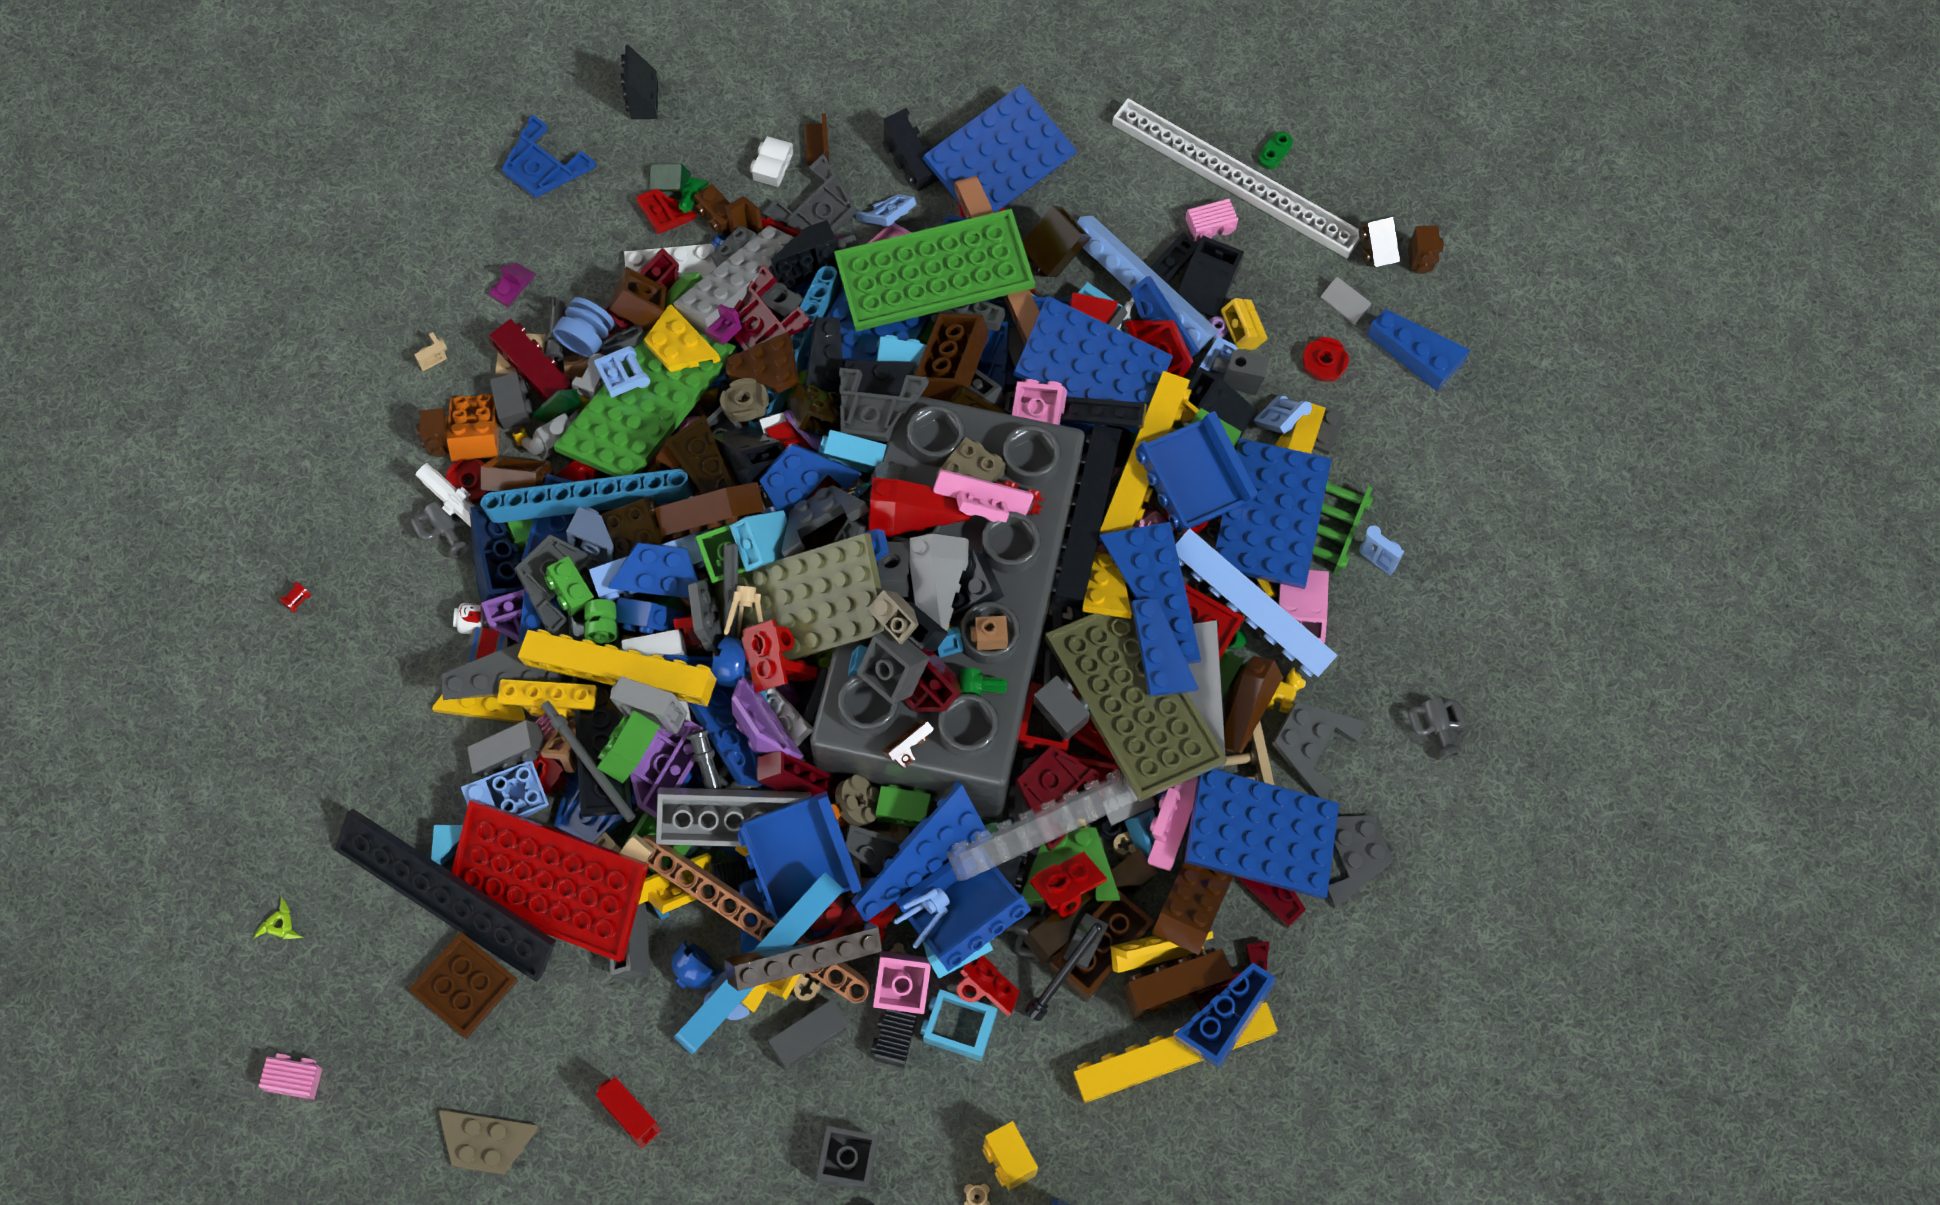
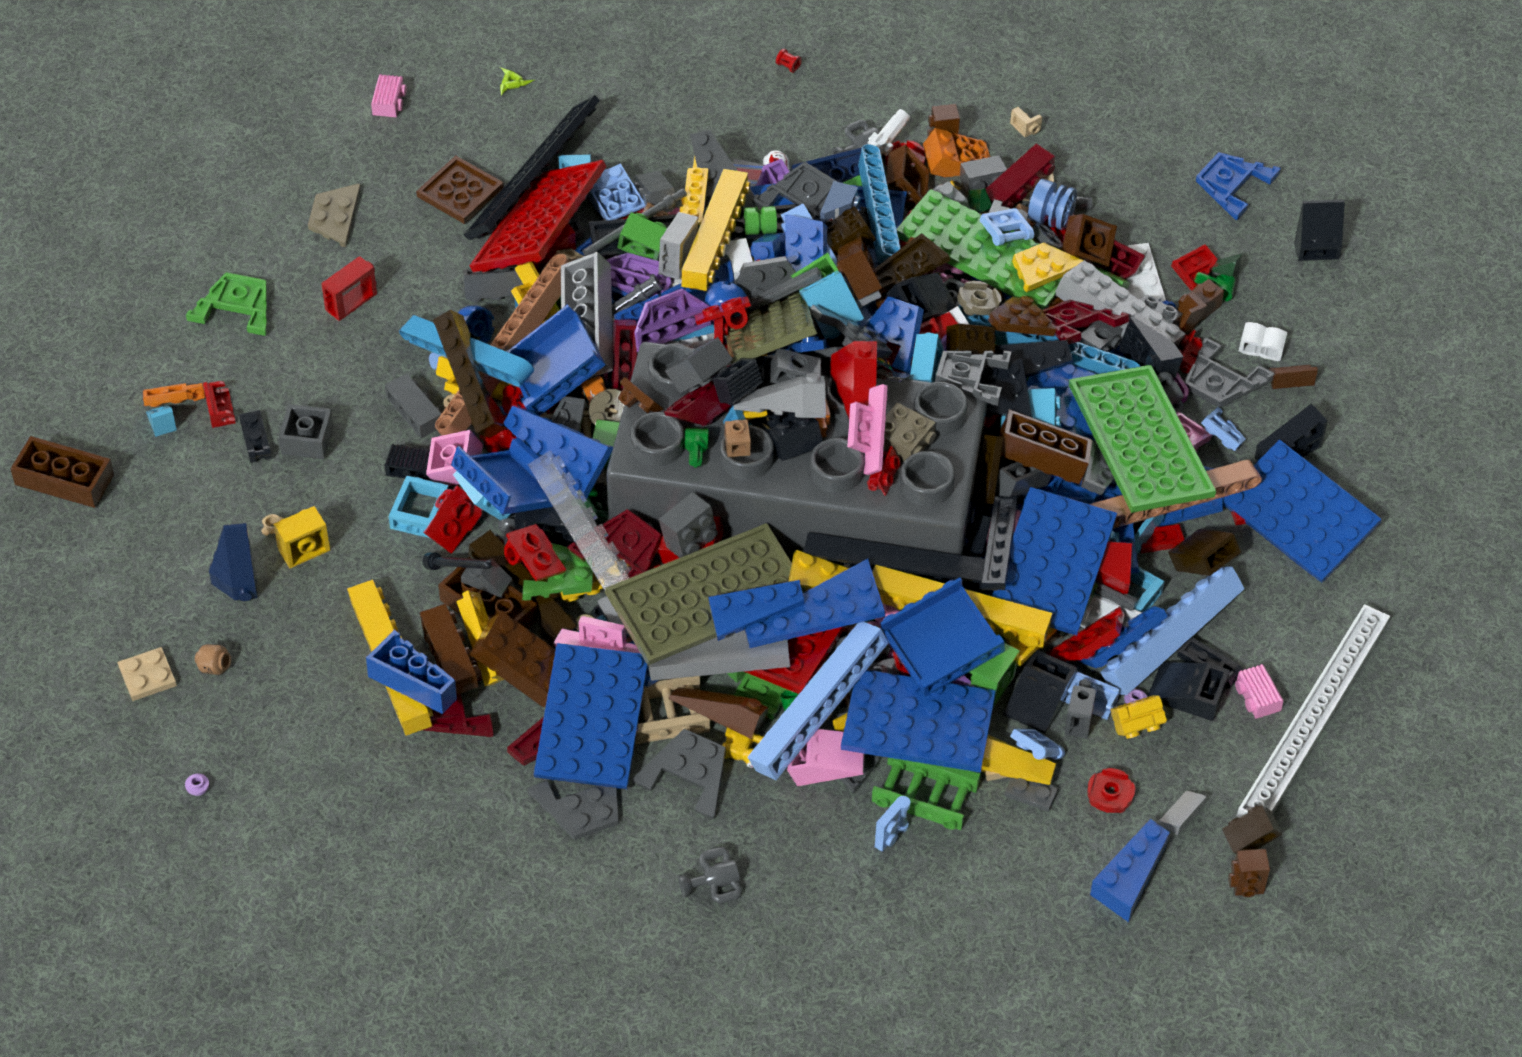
camera: 90 degrees right, 15 degrees down
(512, 283) = (1106, 171): magenta slope -> none
(568, 586) = (790, 194): bright green brick -> none
(637, 848) = (556, 254): tan slope -> none
(725, 326) = (1061, 294): magenta bracket -> none
(743, 597) = (777, 296): tan plant -> none
(894, 615) = (739, 349): dark tan slope -> none
(933, 902) = (516, 459): light blue plant -> none
(1040, 401) = (996, 507): bright pink plate -> none
(1276, 149) = (1357, 752): green plate -> none

